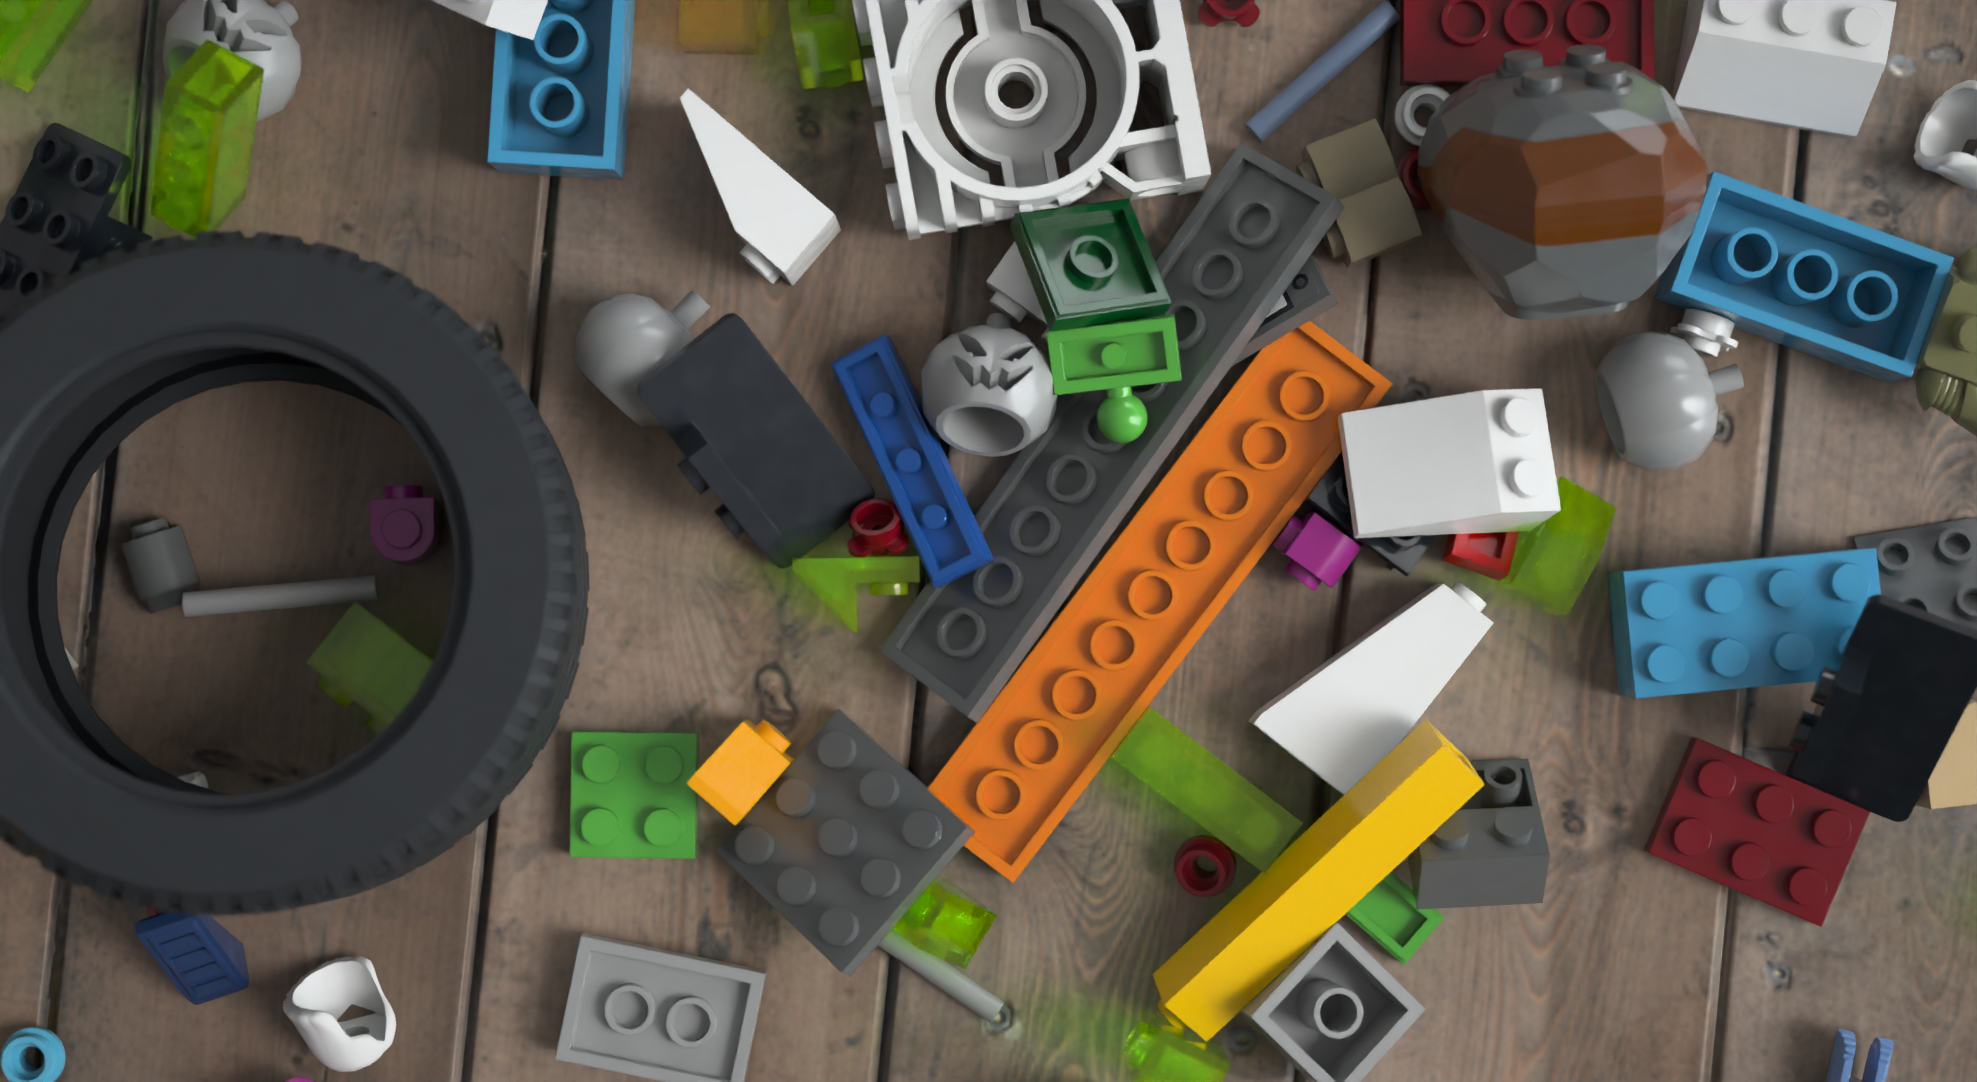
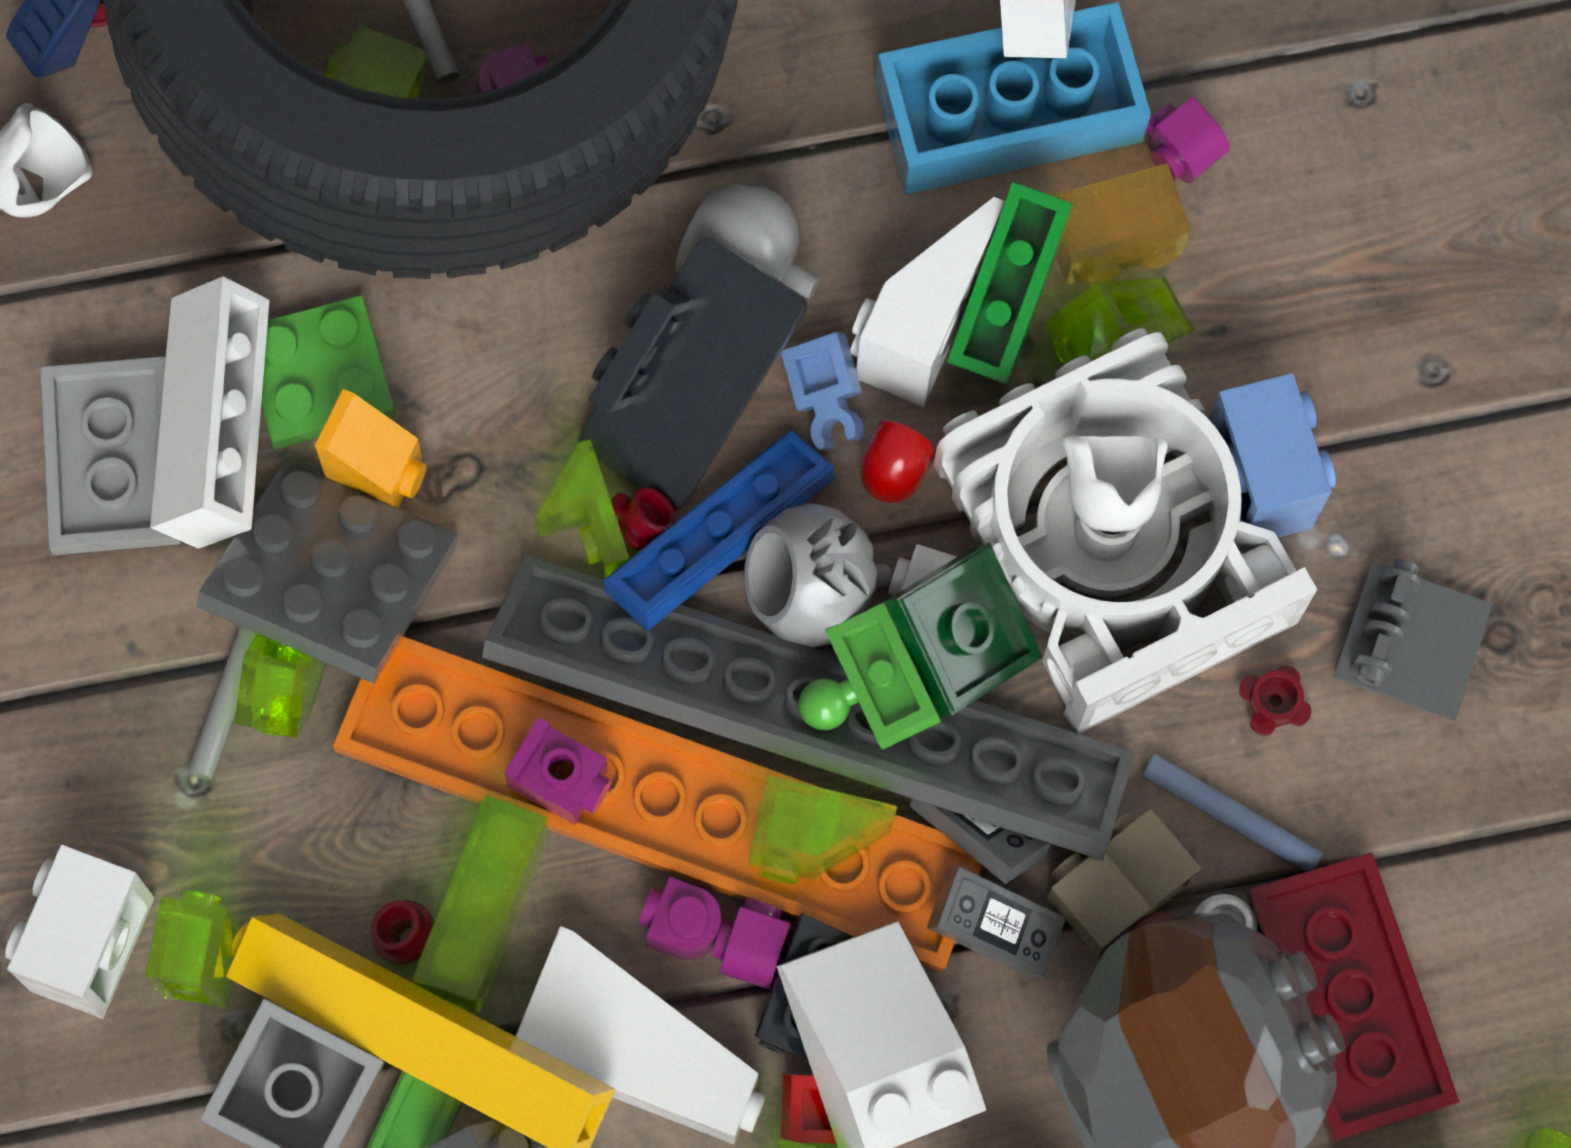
camera: 70 degrees right, 15 degrees down
(656, 911) = (210, 413): none -> white brick
(761, 107) = (1011, 283): none -> green brick
(790, 317) = (821, 381): none -> medium blue plate
(896, 277) = (895, 462): none -> red piece
(968, 66) = (1109, 463): none -> white hair
(1086, 689) = (567, 798): none -> magenta brick
(1236, 466) = (813, 829): none -> clear neon green slope
(1272, 609) = (681, 920): none -> magenta plate
(1364, 323) = (996, 922): none -> tile

